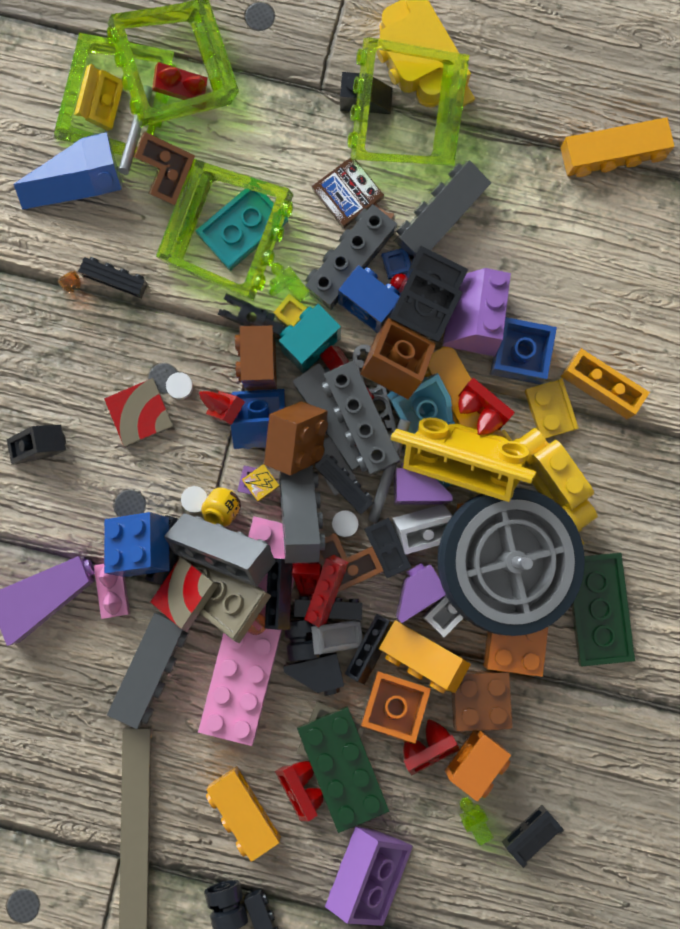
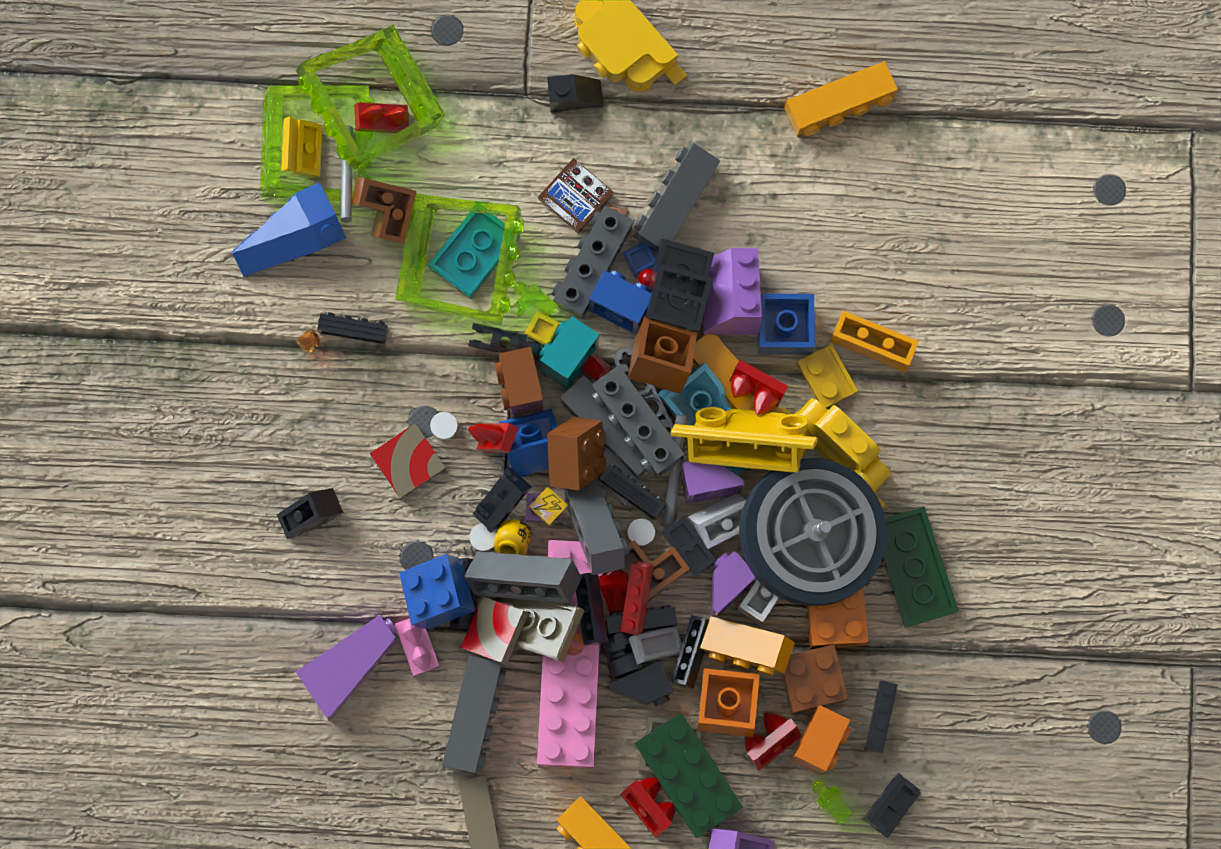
camera: 15 degrees left, 5 degrees down
(218, 467) = (501, 499): none -> black hinge
(449, 106) = (663, 99): clear neon green windscreen -> none
(539, 748) = (881, 717): none -> black piece

